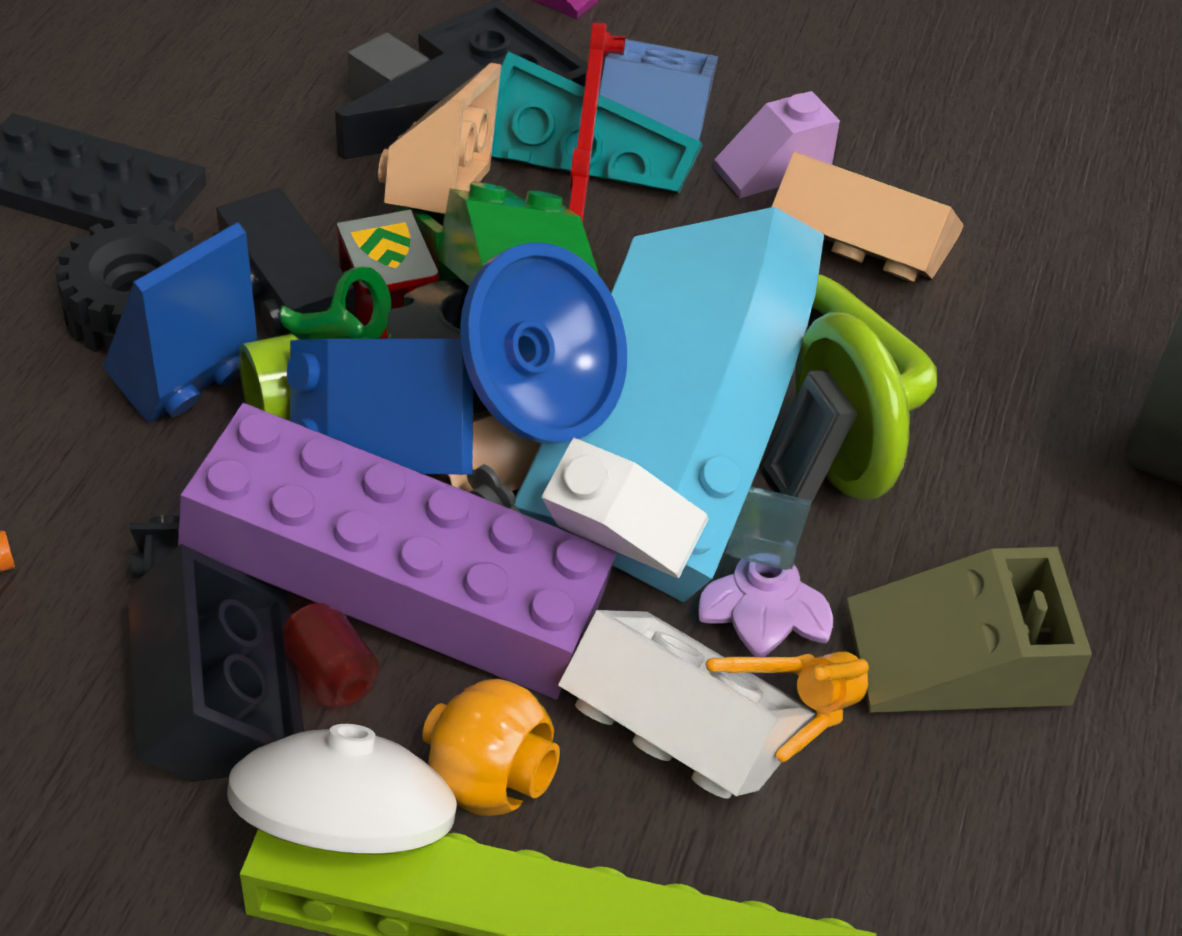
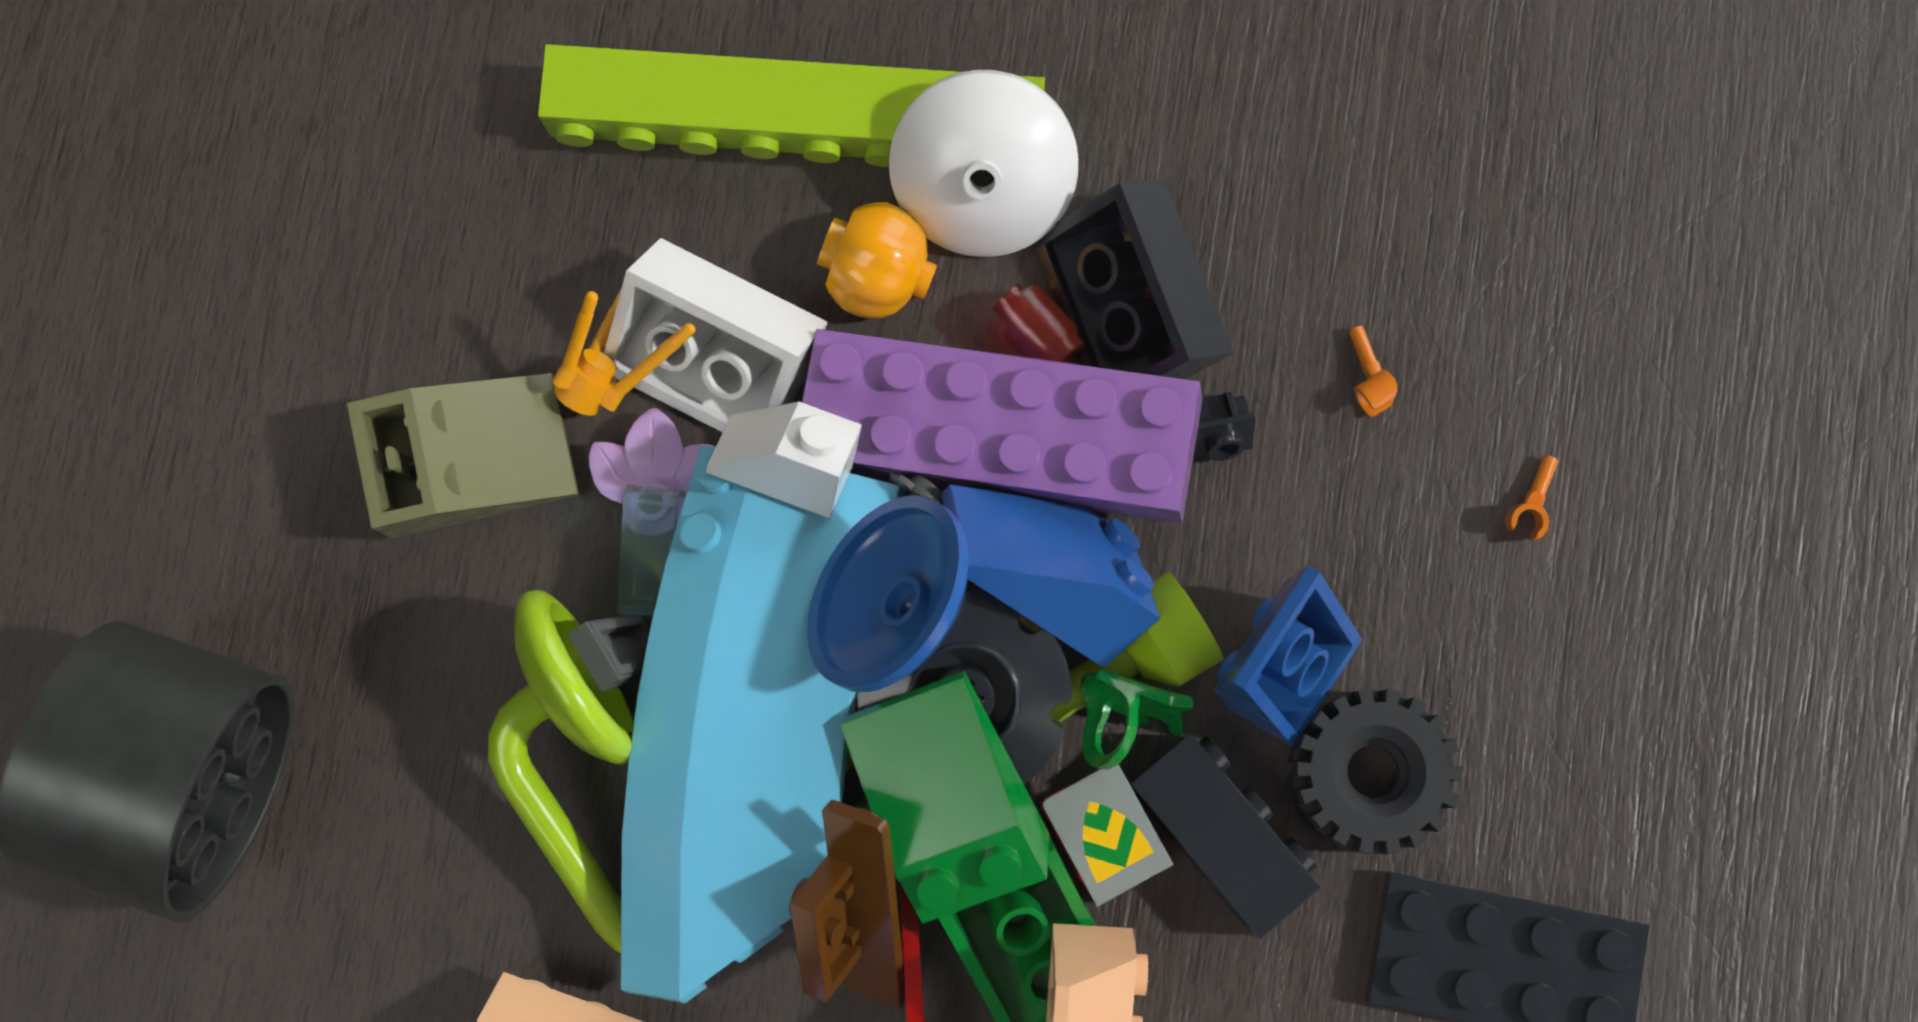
camera: 175 degrees right, 35 degrees up
(642, 212) = (849, 912): none -> reddish brown bracket

